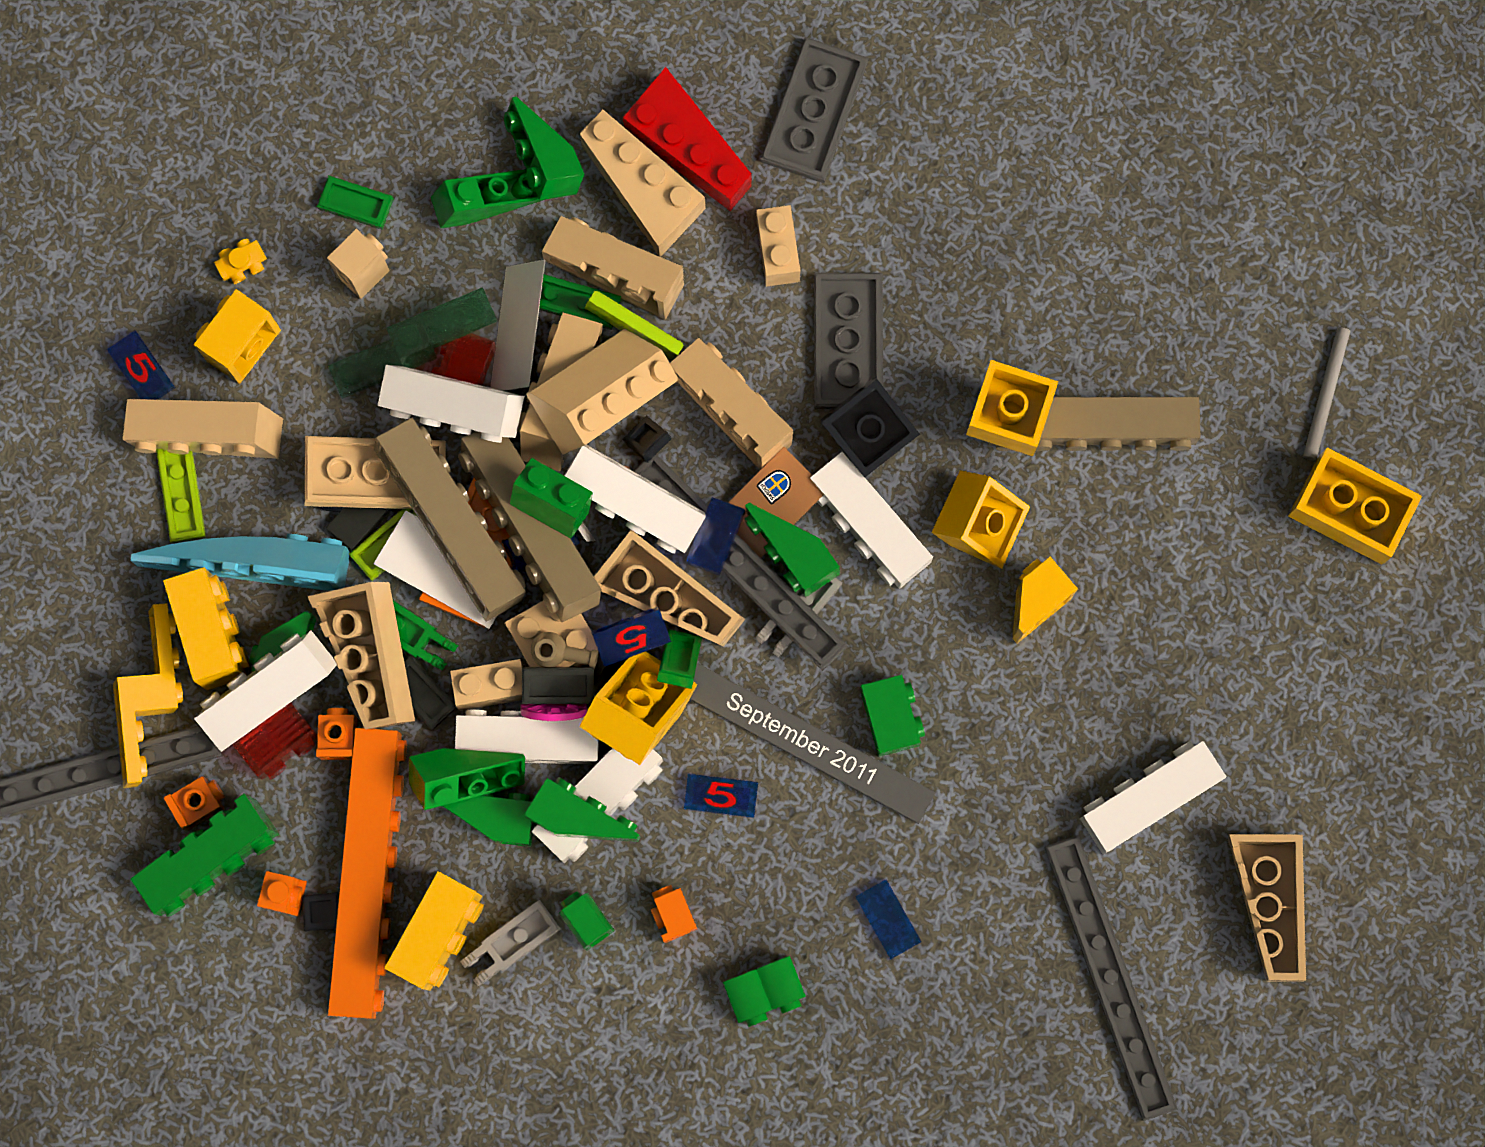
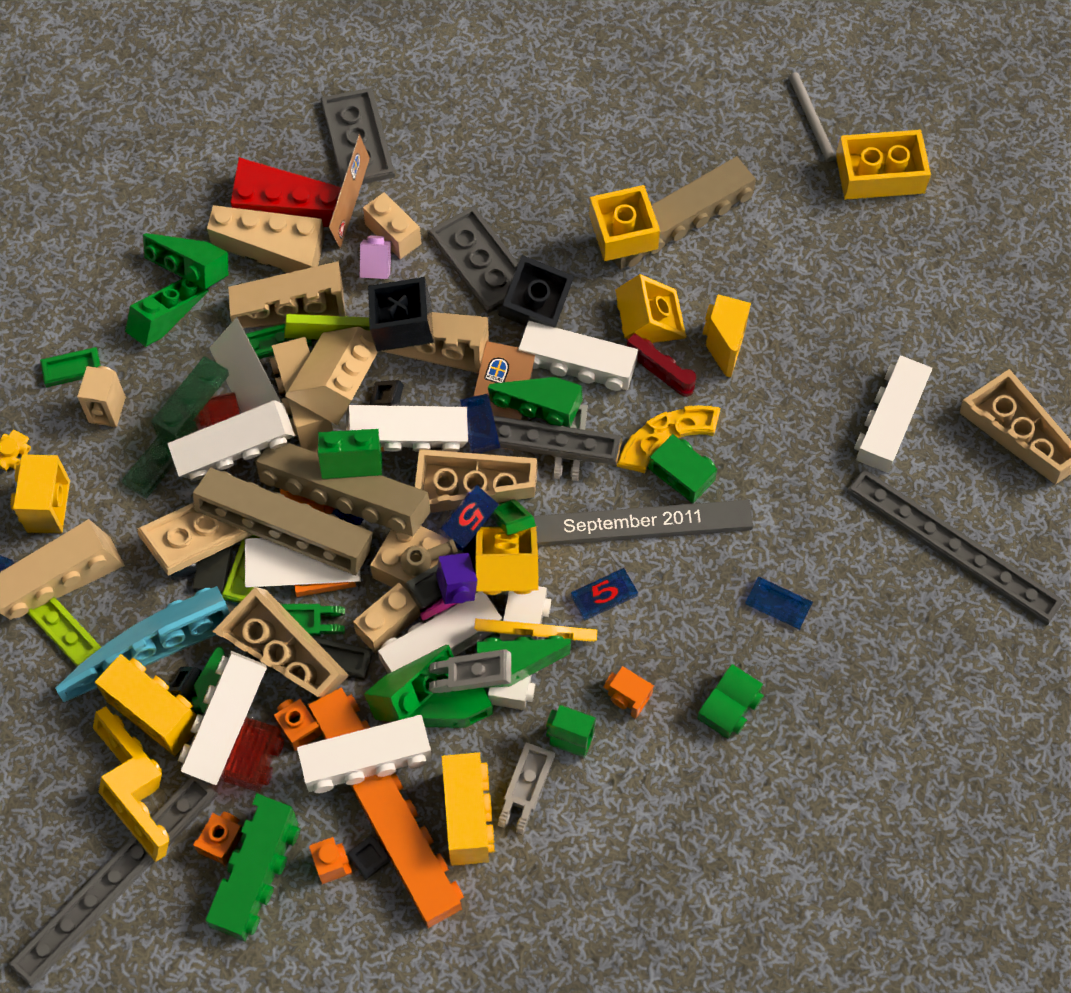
camera: 35 degrees left, 15 degrees down
(257, 623) = (184, 681): none -> black tile
(371, 817) = (365, 754): none -> white brick
(521, 809) = (472, 671): none -> light grey hinge
(569, 701) = (456, 578): none -> dark purple brick
(618, 799) = (535, 629): none -> yellow tile
(705, 370) = (400, 314): none -> black brick
(733, 275) = (375, 258): none -> lavender brick
(755, 181) = (349, 192): none -> medium nougat sticker
(906, 658) = (681, 423): none -> yellow tile
(950, 588) = (663, 366): none -> dark red plate

